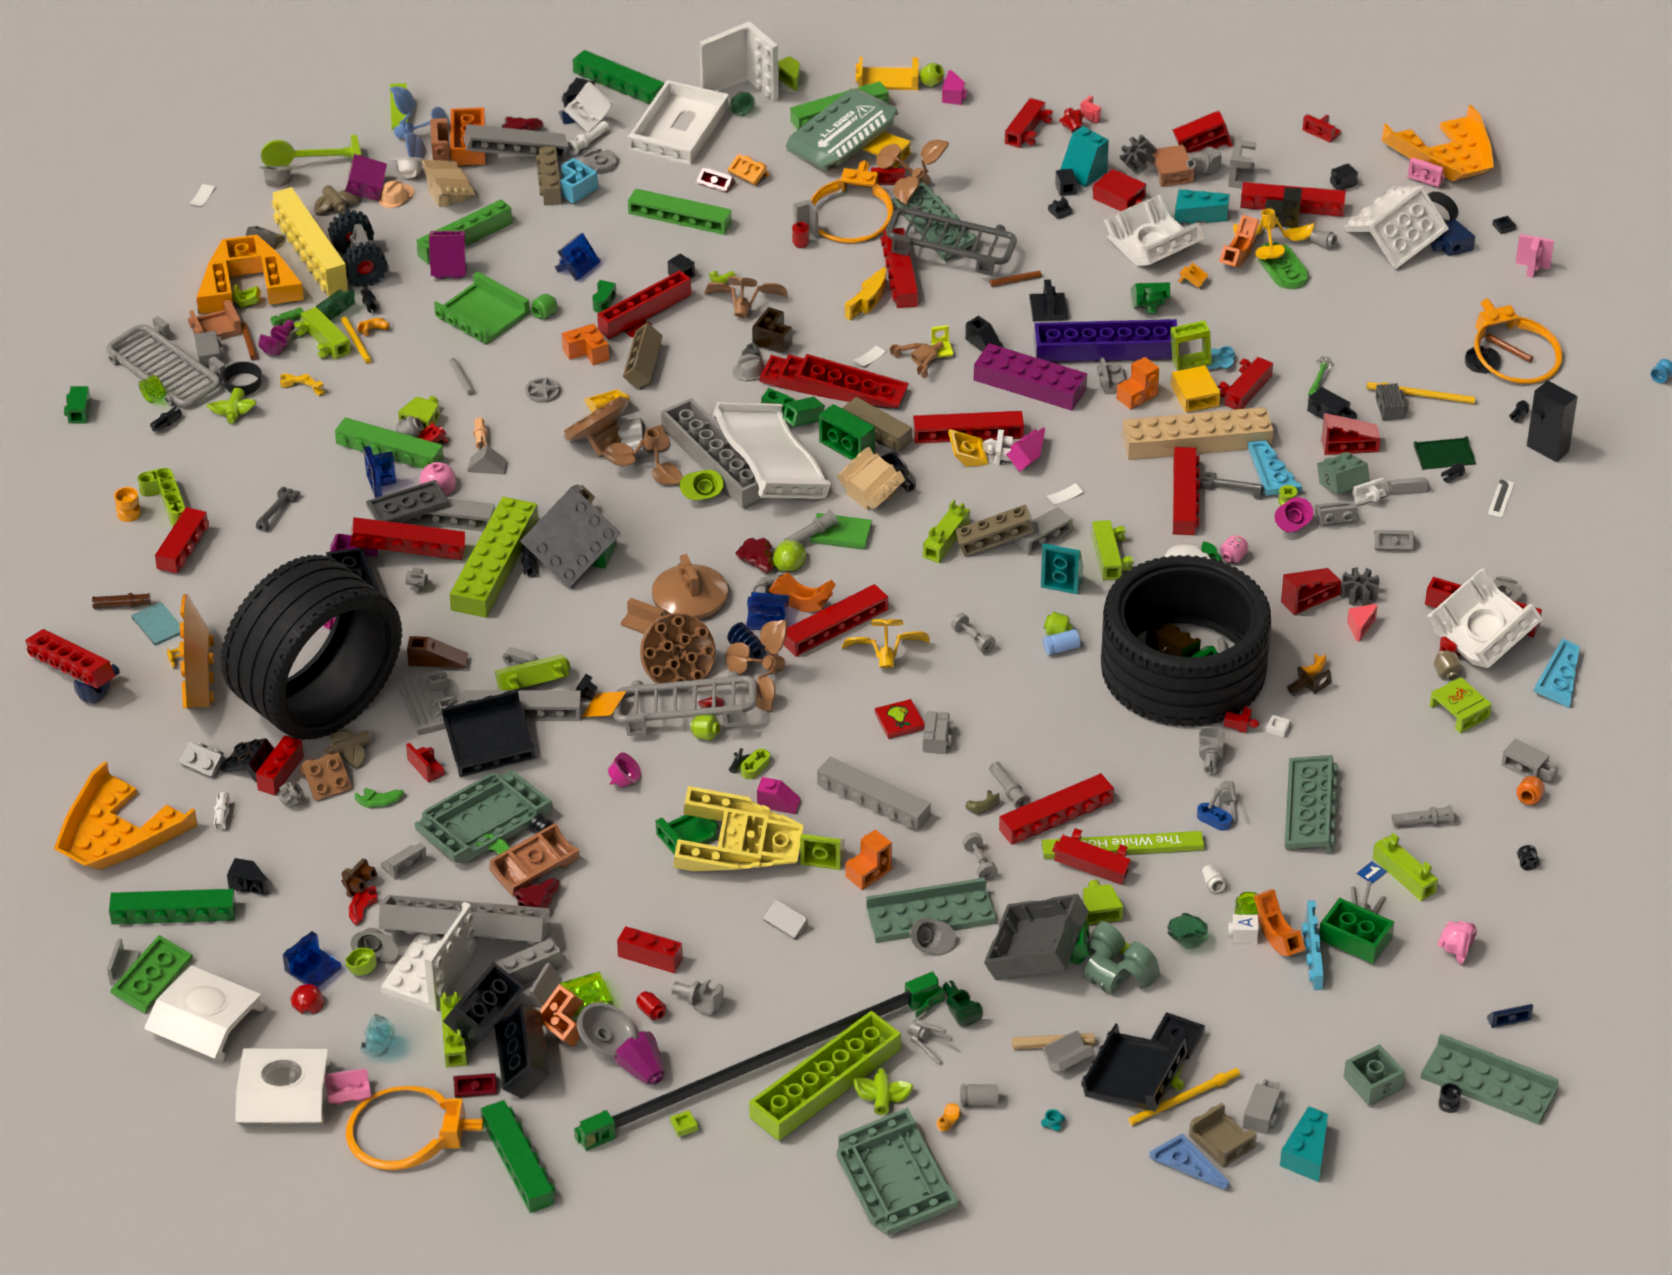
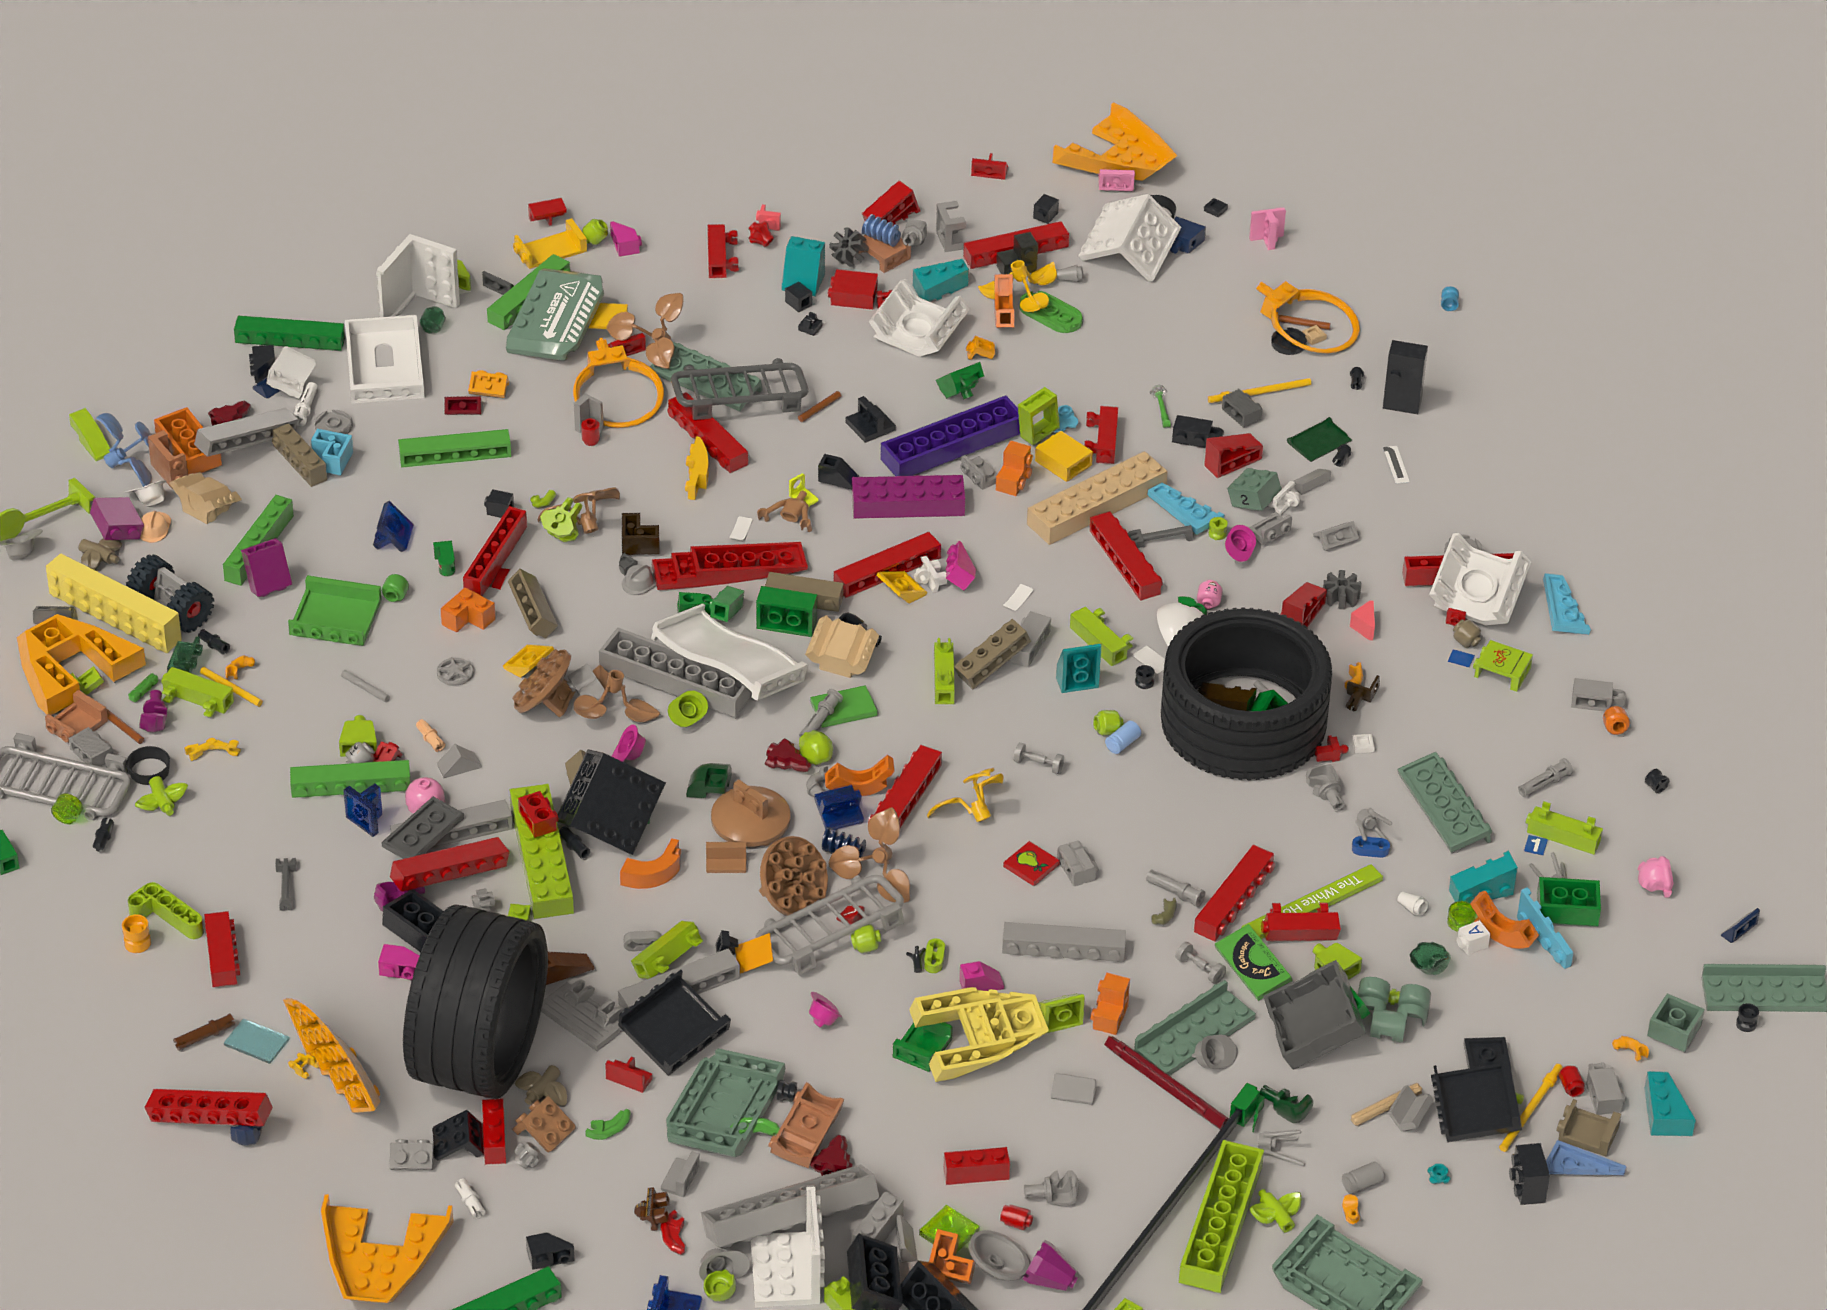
camera: 30 degrees left, 0 degrees up
(439, 601) = (520, 911): none -> lime plate
(502, 522) = (537, 814): none -> red brick
(575, 607) = (652, 873): none -> orange arch
(634, 500) = (630, 744): none -> dark pink piece
(677, 545) = (709, 779): none -> dark green brick
(718, 298) = (562, 523): none -> lime hinge
(815, 89) = (496, 283): none -> dark grey slope
(870, 943) = (1166, 1082): none -> dark red piece
(905, 45) = (546, 210): none -> red panel
(1027, 871) = (1253, 962): none -> bright green tile
(1128, 1151) = (1529, 1174): none -> black brick
(1173, 147) = (881, 230): none -> medium blue piece
(1238, 1088) = (1572, 1081): none -> red brick
(1292, 884) = (1495, 878): none -> teal wedge
(1318, 1075) = (1630, 1043): none -> light orange piece
(1428, 684) = (1461, 658): none -> blue sticker
(1510, 362) = (1314, 335): none -> tan tile

